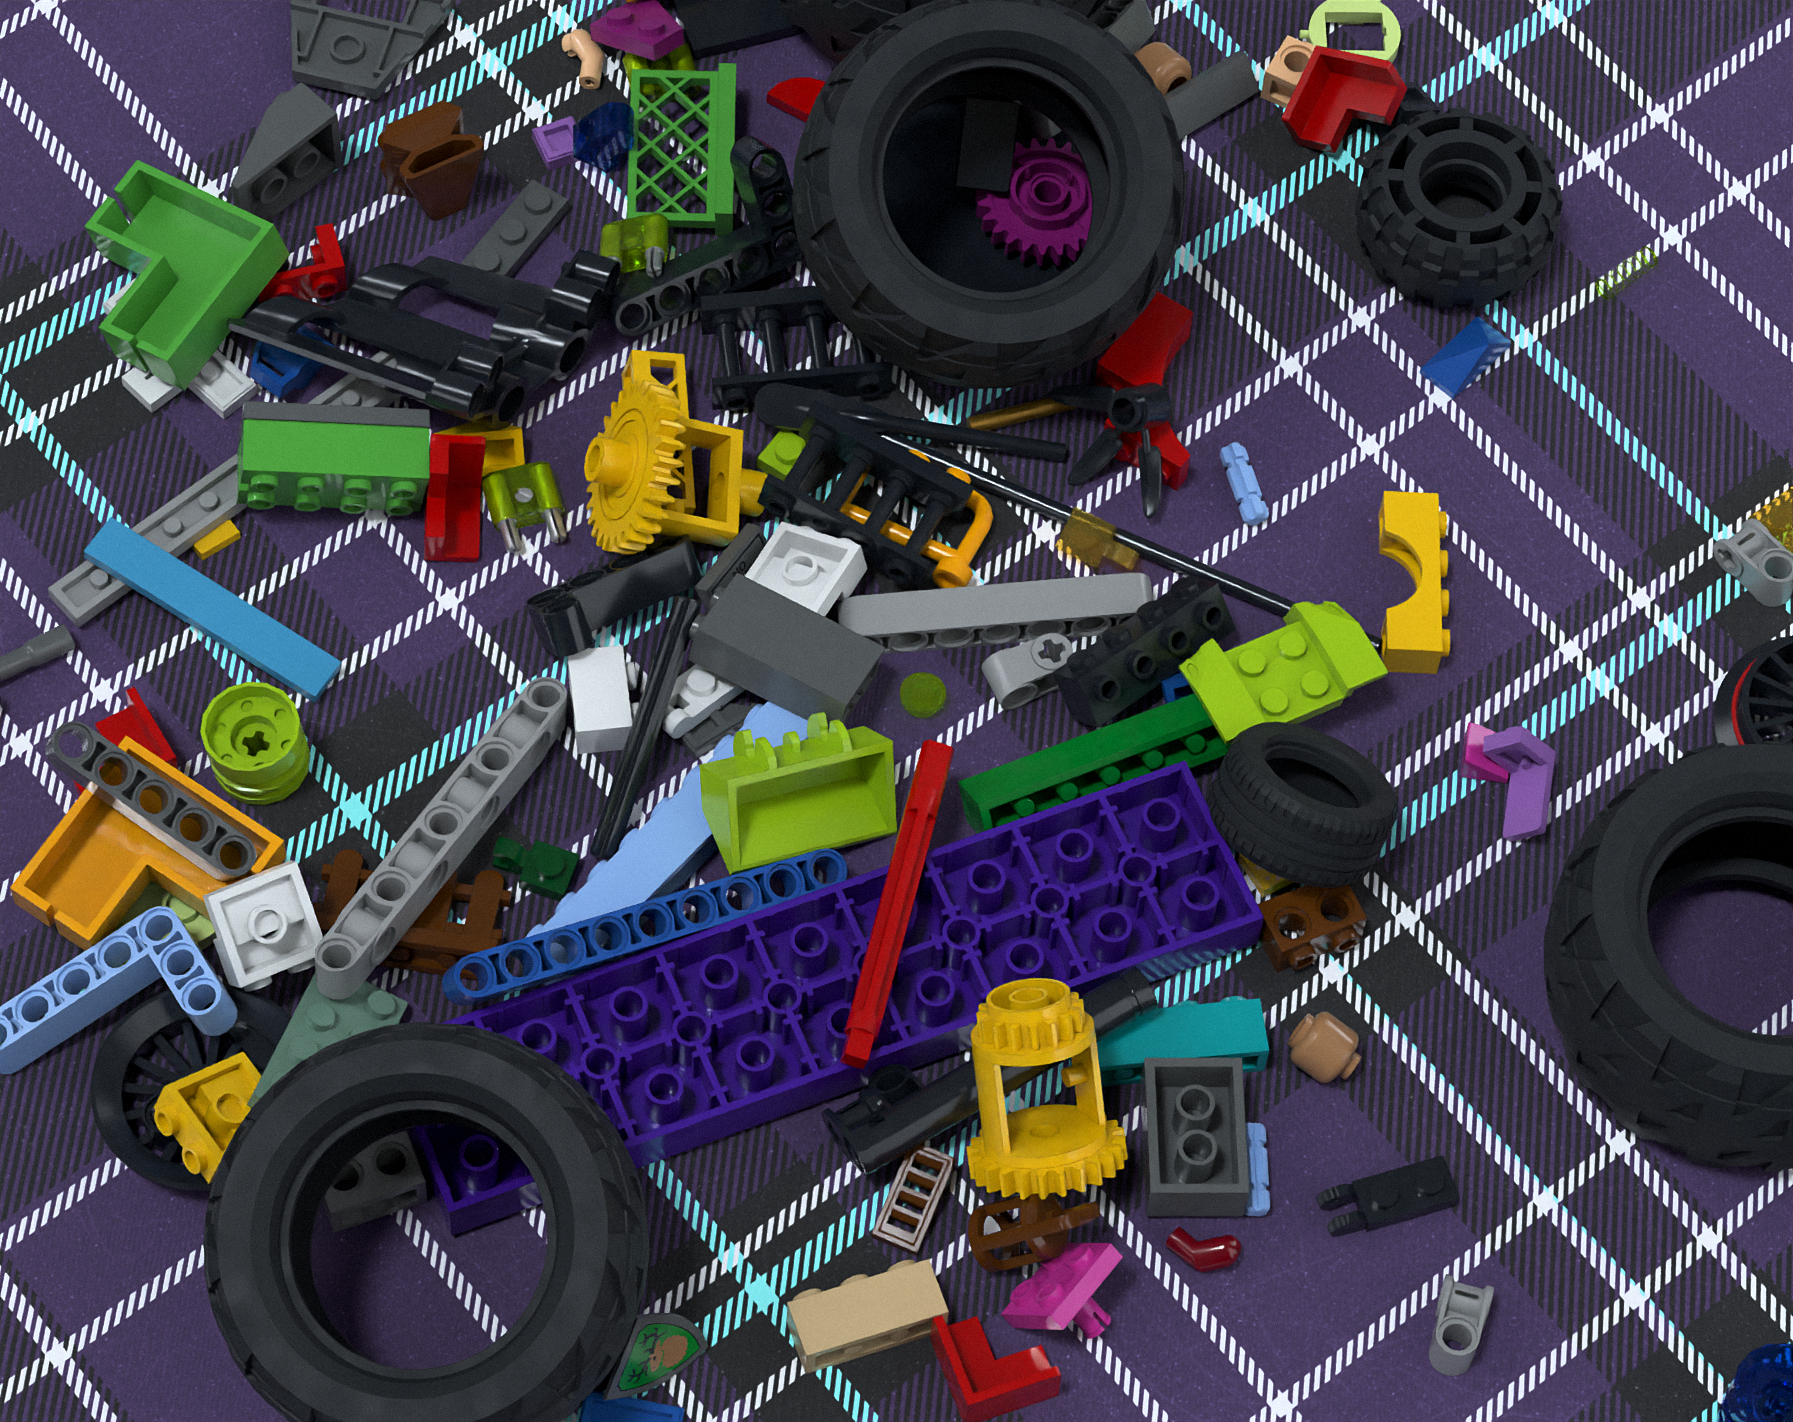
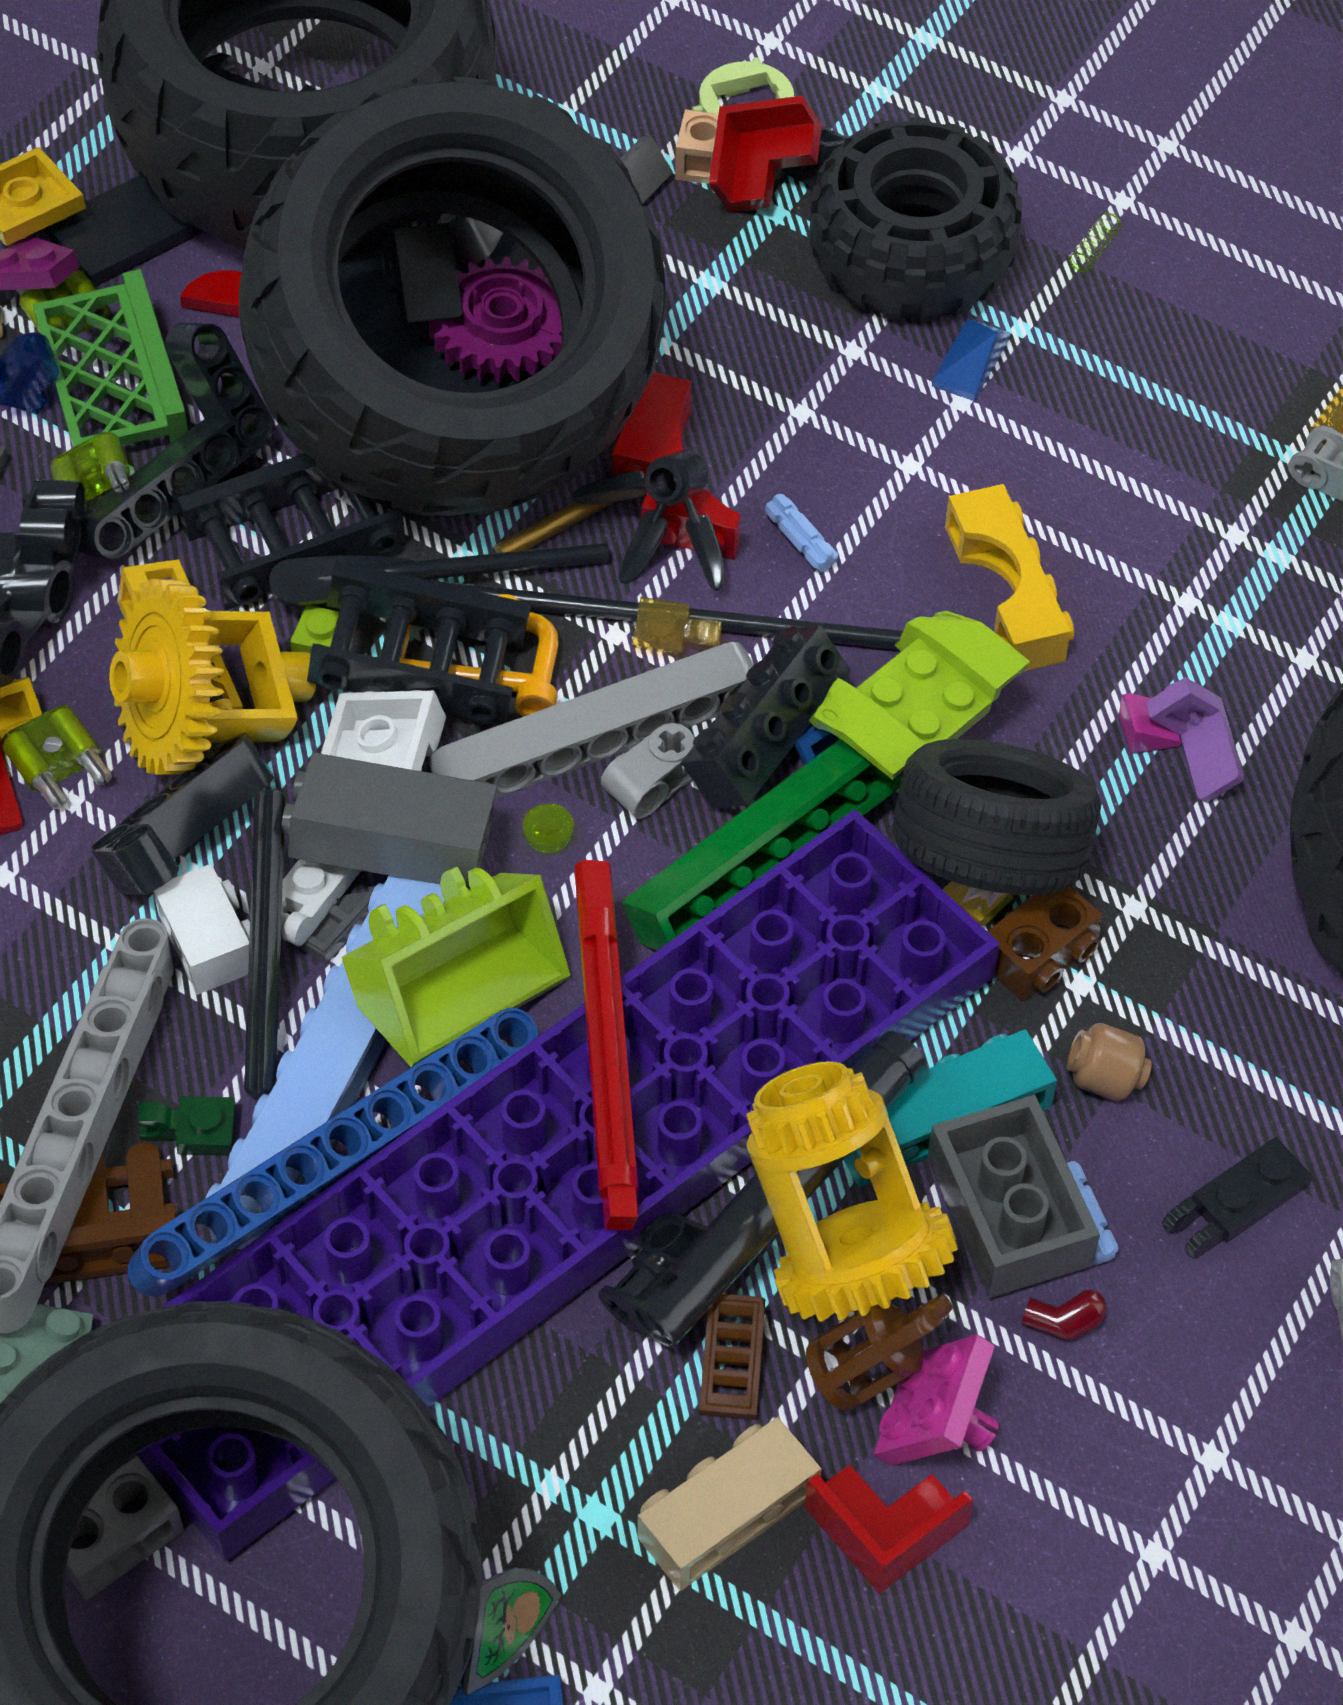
camera: 15 degrees left, 5 degrees down
(735, 559) = (306, 737): dark grey tile -> none

